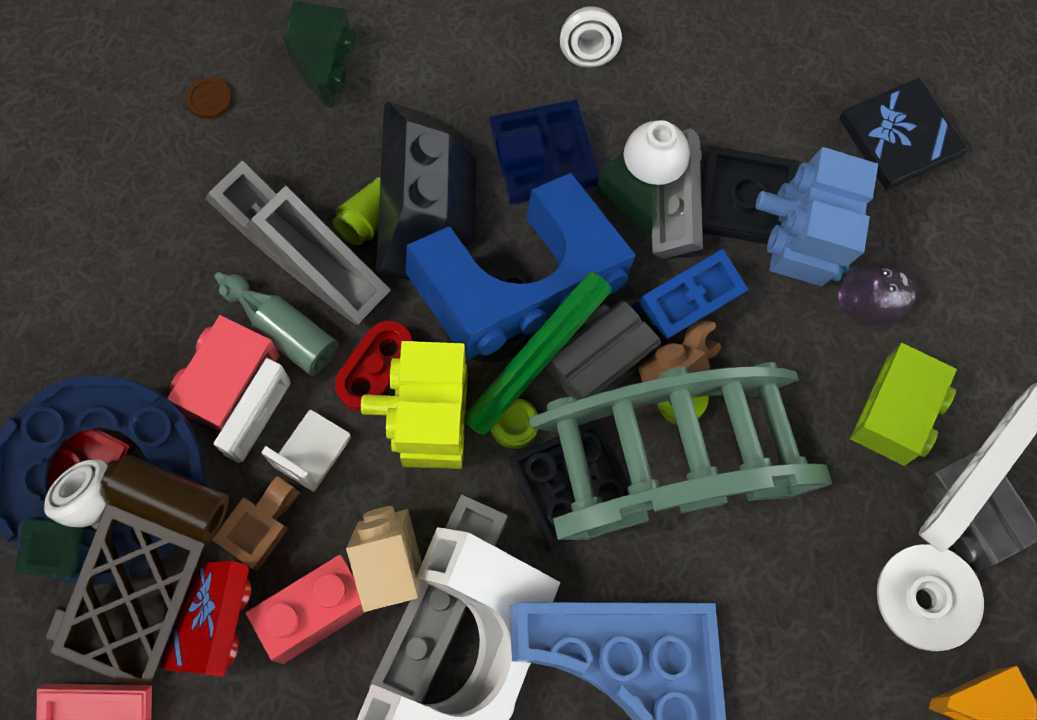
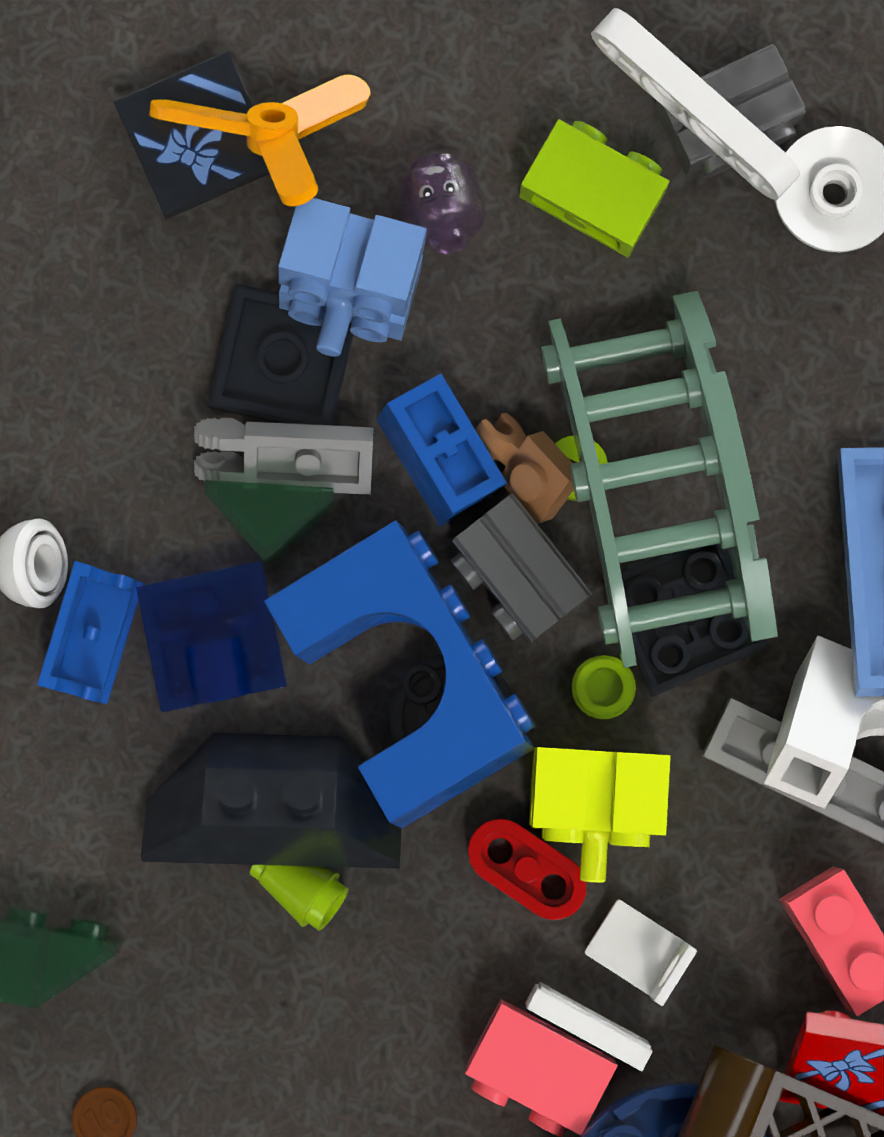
camera: 85 degrees left, 15 degrees up
(253, 529) = (739, 1016): medium nougat plate -> none
(282, 323) = (464, 998): sand green wheel -> none
(298, 242) = (351, 979): light grey slope -> none
(385, 558) = (794, 846): tan brick -> none
(537, 353) = (530, 653): green axle -> none
(542, 71) = (90, 633): none -> blue hinge
(657, 152) = (243, 482): white brick -> none
(920, 173) = (276, 128): none -> light orange piece

